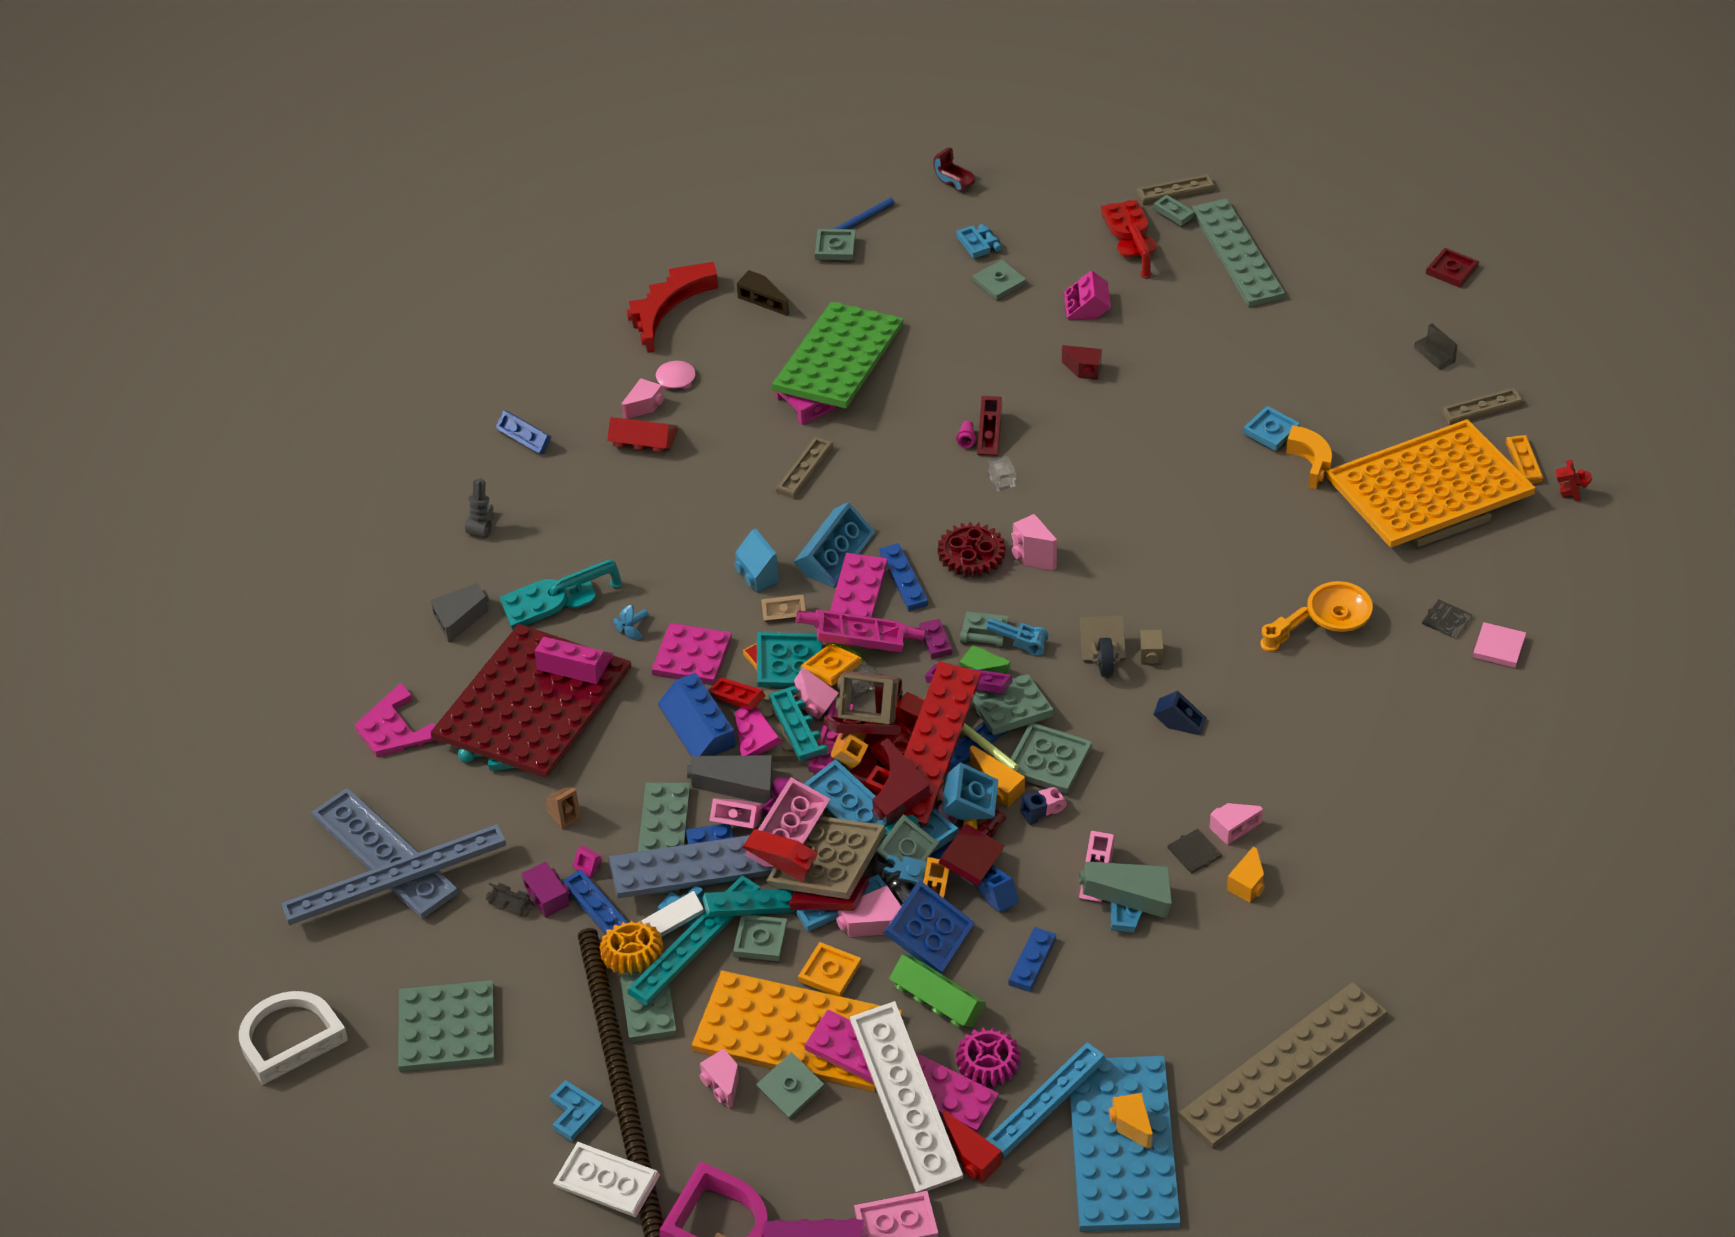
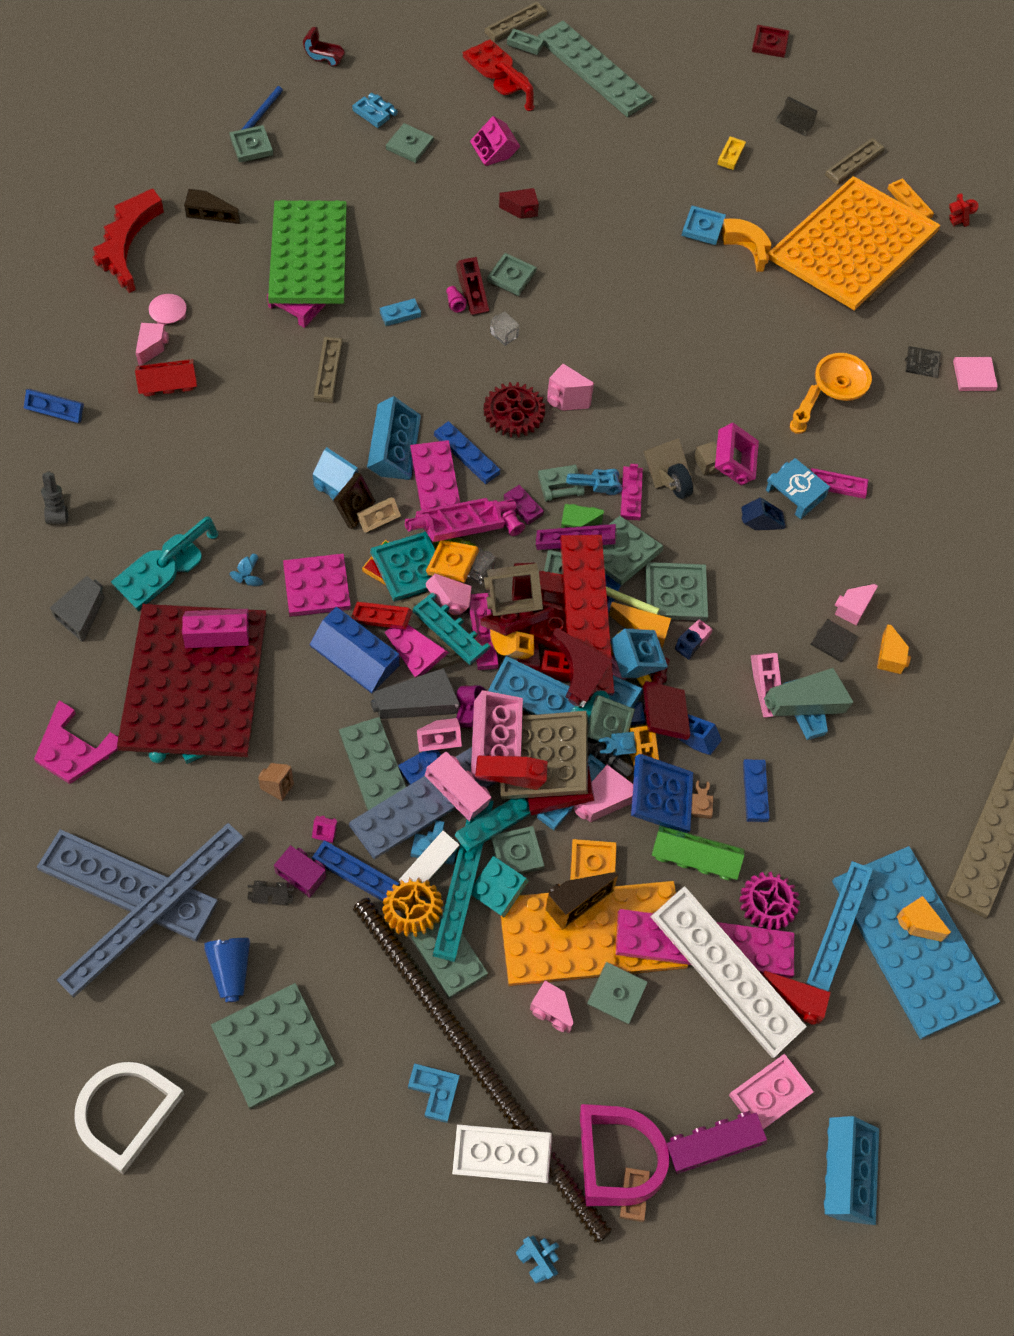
camera: 30 degrees left, 15 degrees up
(439, 942) = (229, 966): none -> blue cone
(724, 958) = (499, 886): none -> teal plate
(728, 856) = (458, 786): none -> bright pink brick
(762, 583) = (353, 498): none -> dark brown plate
(794, 984) = (577, 896): none -> dark brown slope
(904, 434) = (400, 312): none -> dark azure plate
(914, 655) = (512, 523): none -> dark pink bush
(970, 954) = (702, 803): none -> medium nougat plate
(1038, 425) = (511, 274): none -> sand green plate
(1053, 657) = (631, 492): none -> dark pink plate
(1191, 636) = (735, 437): none -> dark pink window
(1233, 698) = (799, 486): none -> dark azure panel
(1282, 708) = (843, 483): none -> dark pink tile
(1342, 366) = (731, 153): none -> yellow plate

